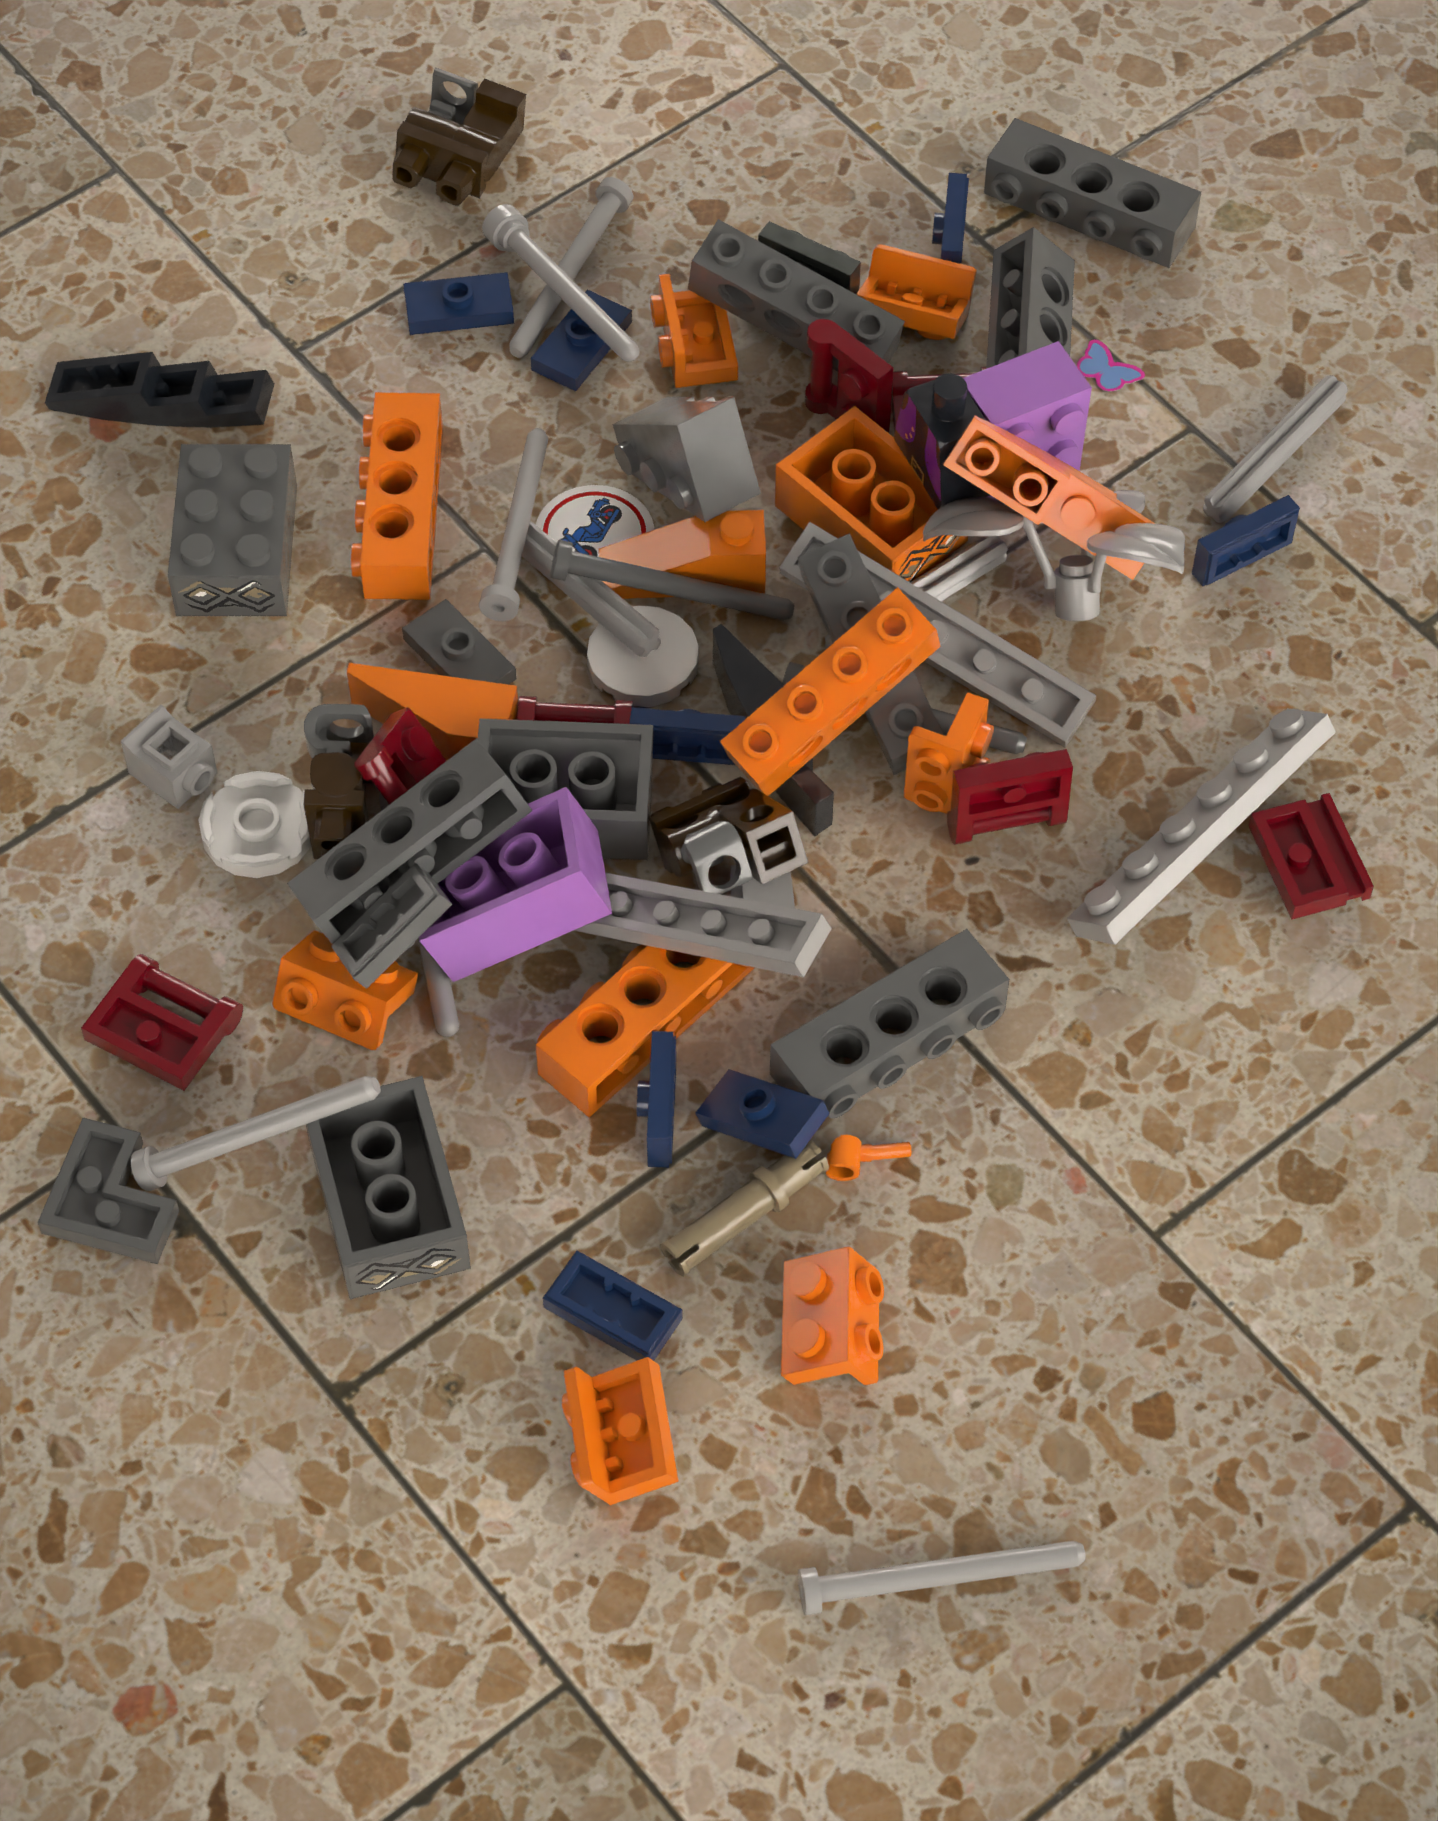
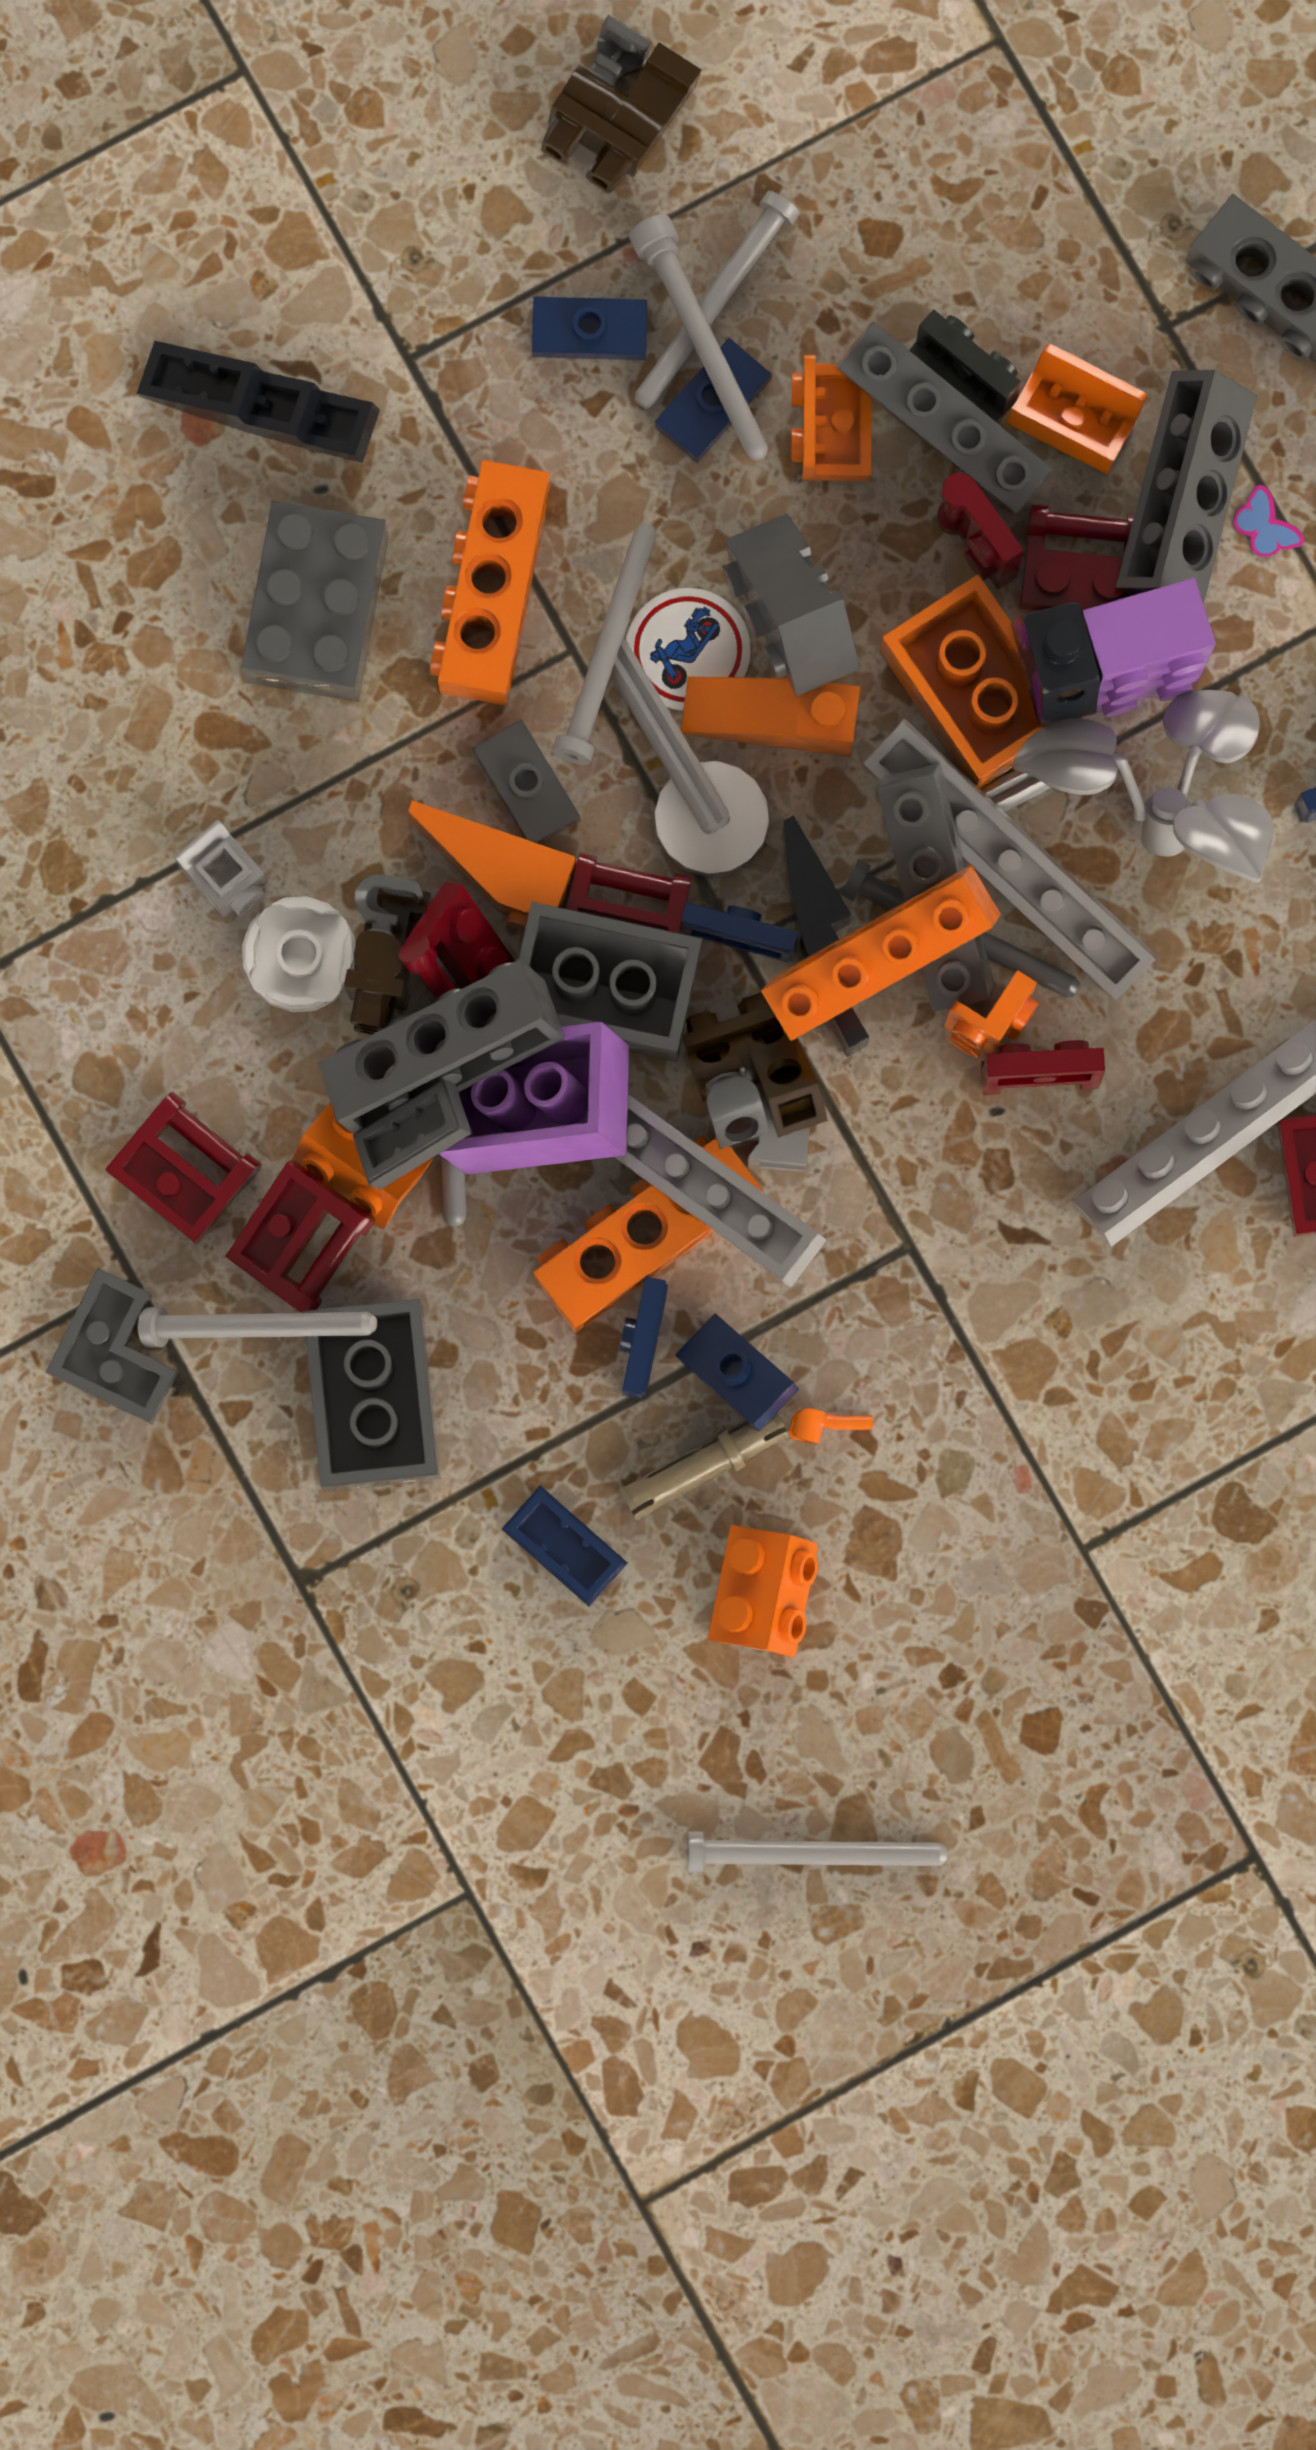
camera: 10 degrees right, 25 degrees up
(276, 1046) = (285, 1226): none -> dark red plate
(619, 1431) = (550, 1672): orange bracket -> none
(667, 583) = (648, 716): dark grey bar -> none
(902, 1000) = (951, 1247): dark grey brick -> none
(950, 226) = (1134, 321): dark blue plate -> none
(1041, 487) = (1148, 737): orange slope -> none

